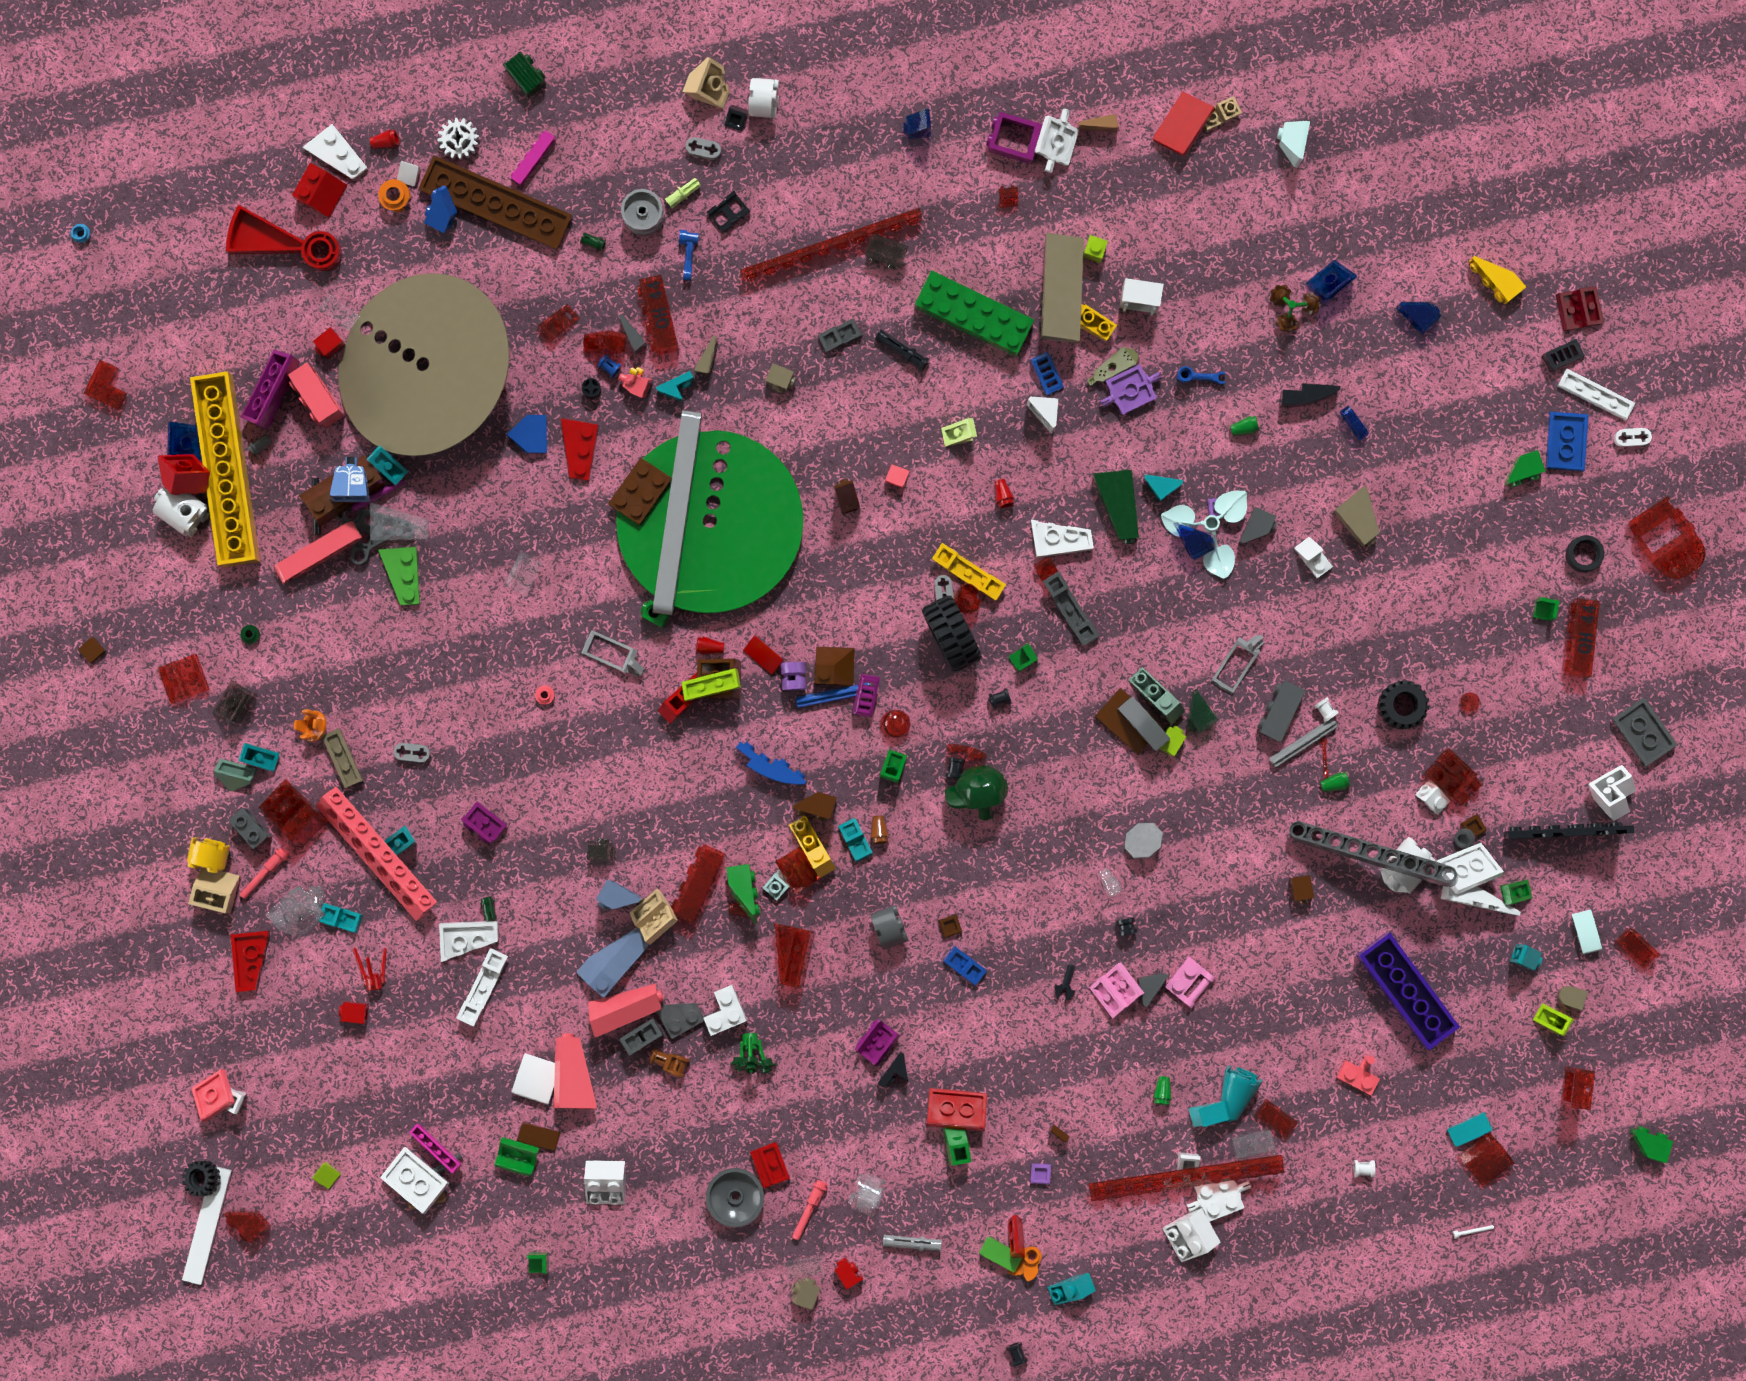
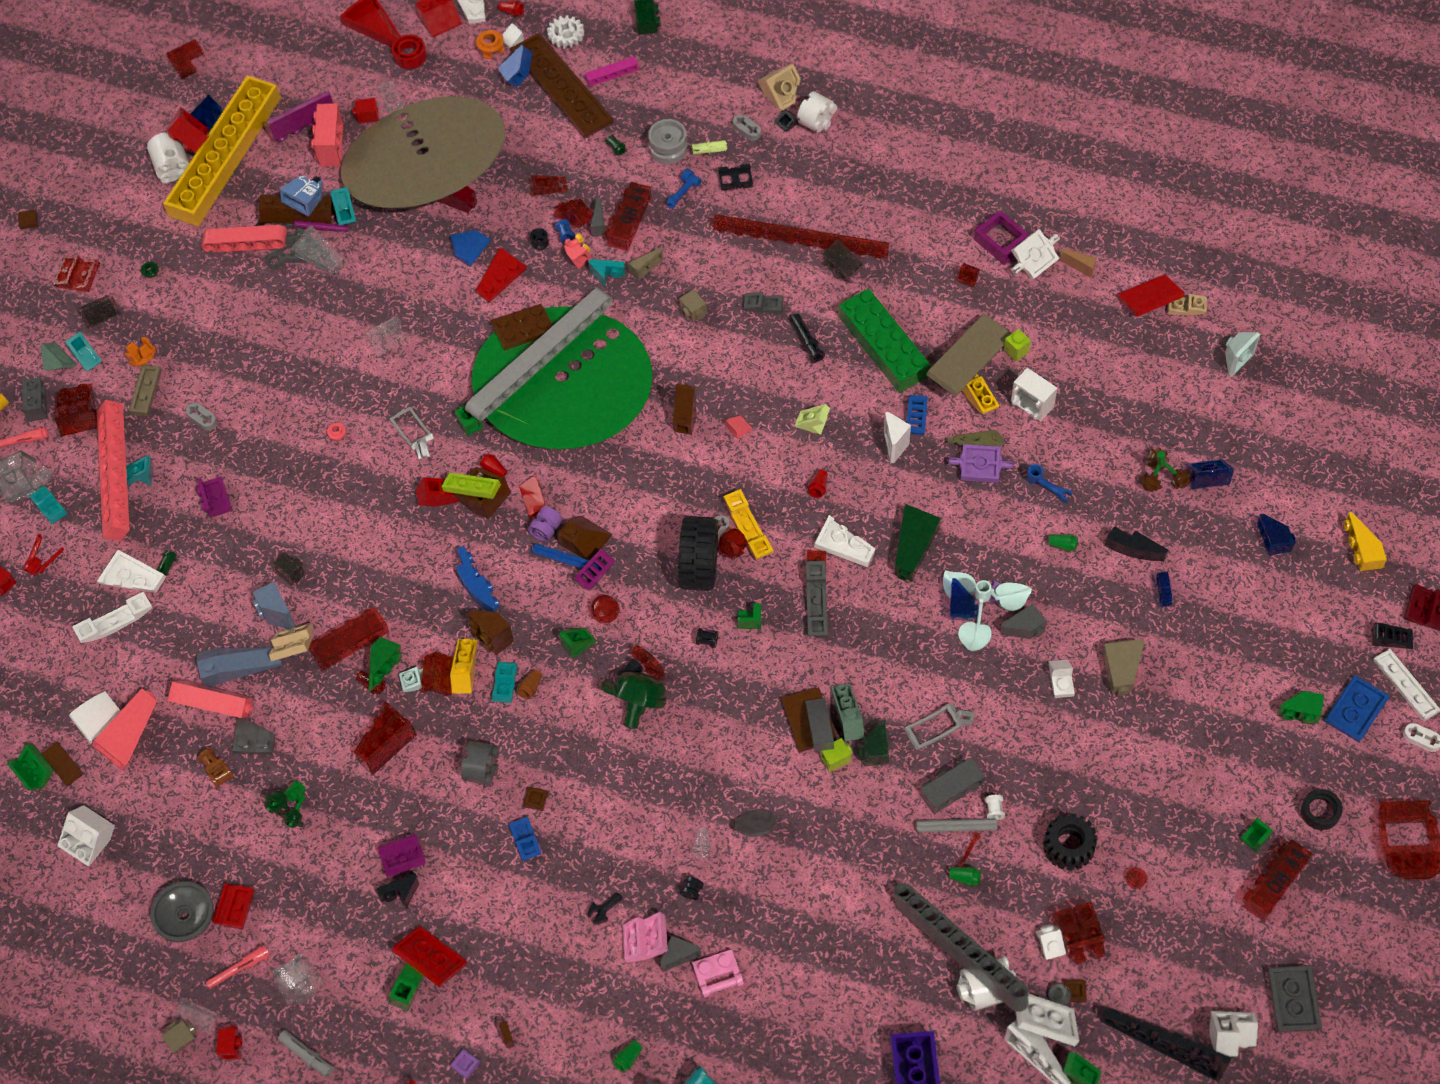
camera: 30 degrees right, 25 degrees down
(259, 444) = (261, 150): dark grey pin -> none
(403, 573) = (297, 289): bright green wing -> none
(641, 1036) = (208, 730): dark grey brick -> none
(730, 1013) = (295, 757): white brick -> none
(918, 125) = (928, 189): clear blue slope -> none
(1161, 486) = (961, 549): teal slope -> none
(1301, 889) = (875, 949): reddish brown brick -> none

